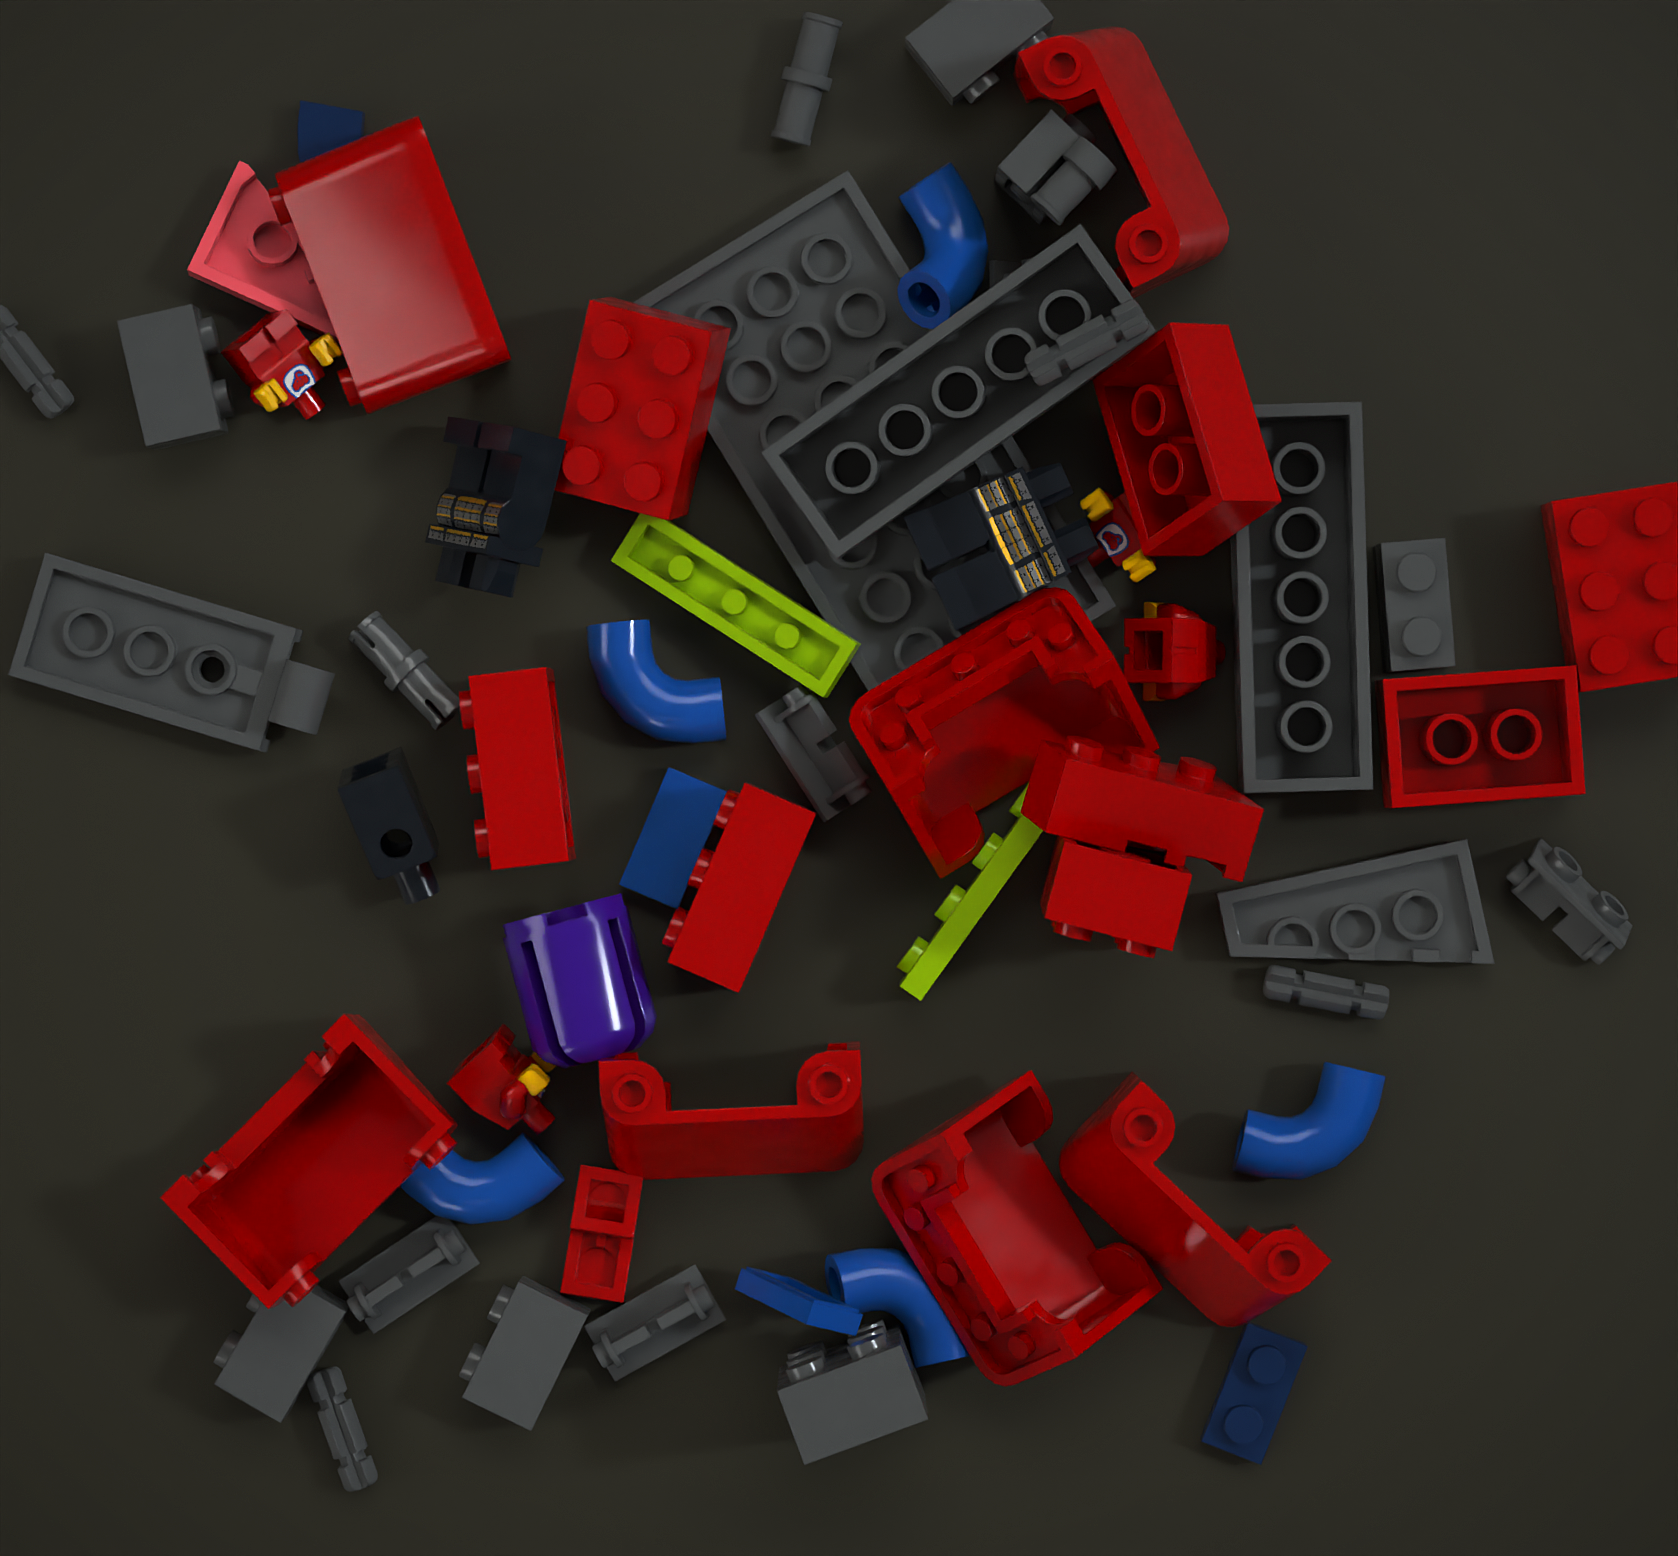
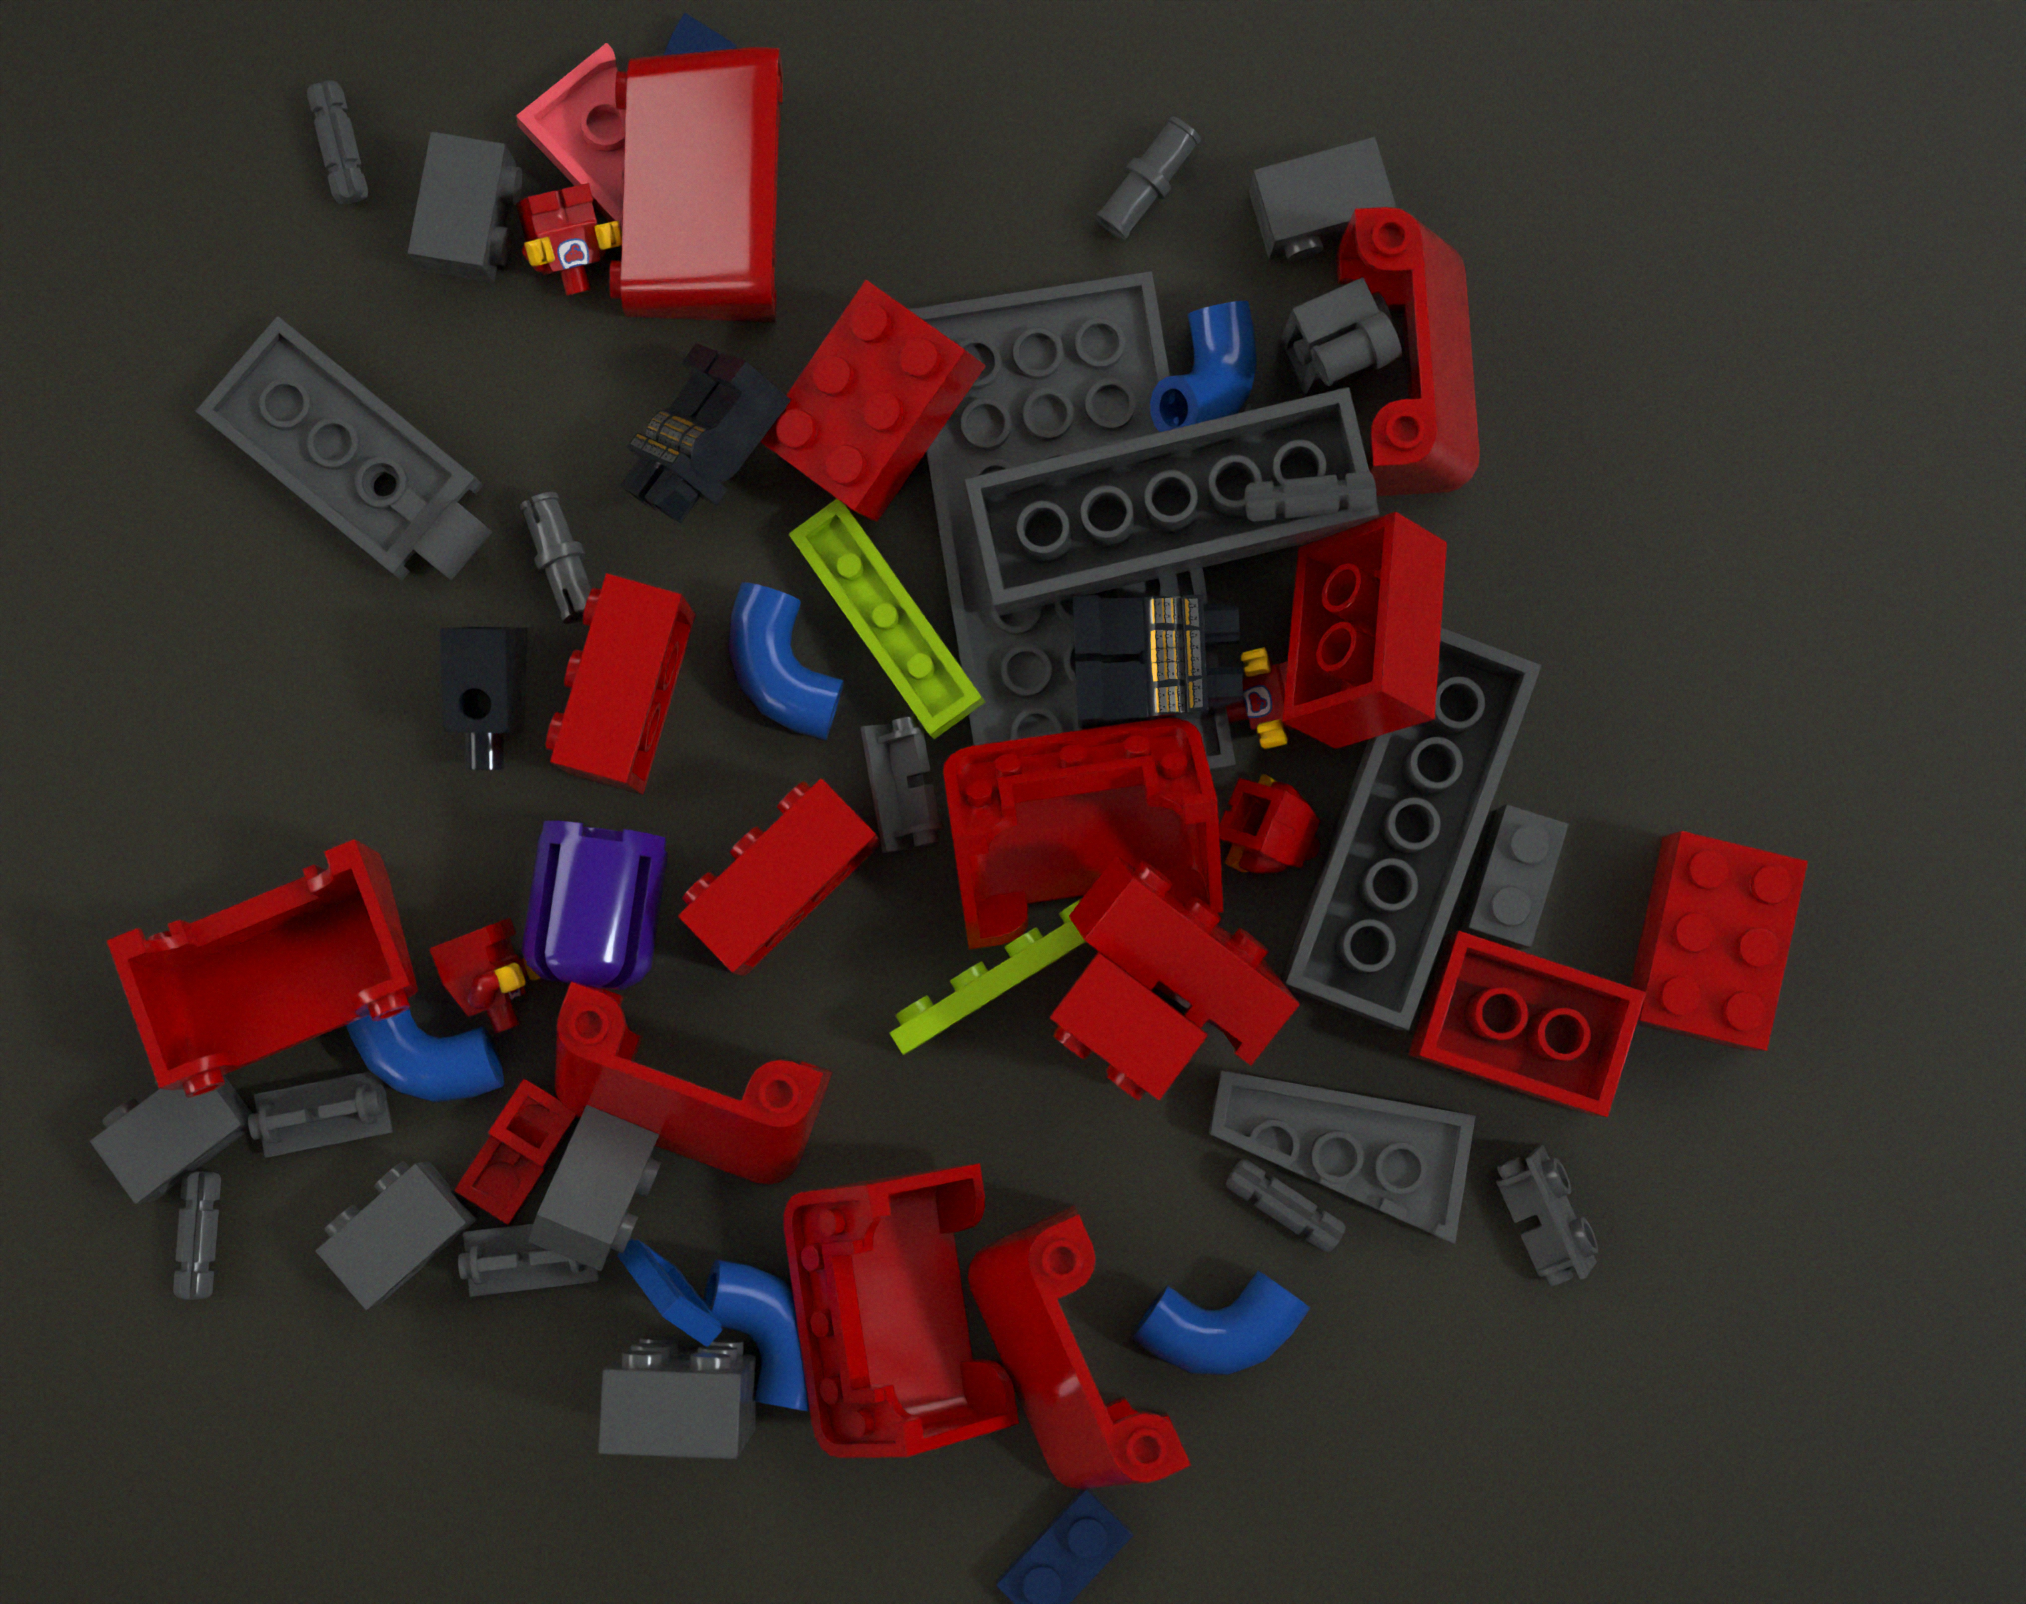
camera: 25 degrees right, 5 degrees down
(672, 838) = (734, 808): blue tile -> none
(692, 1236) = (594, 1187): none -> dark grey brick

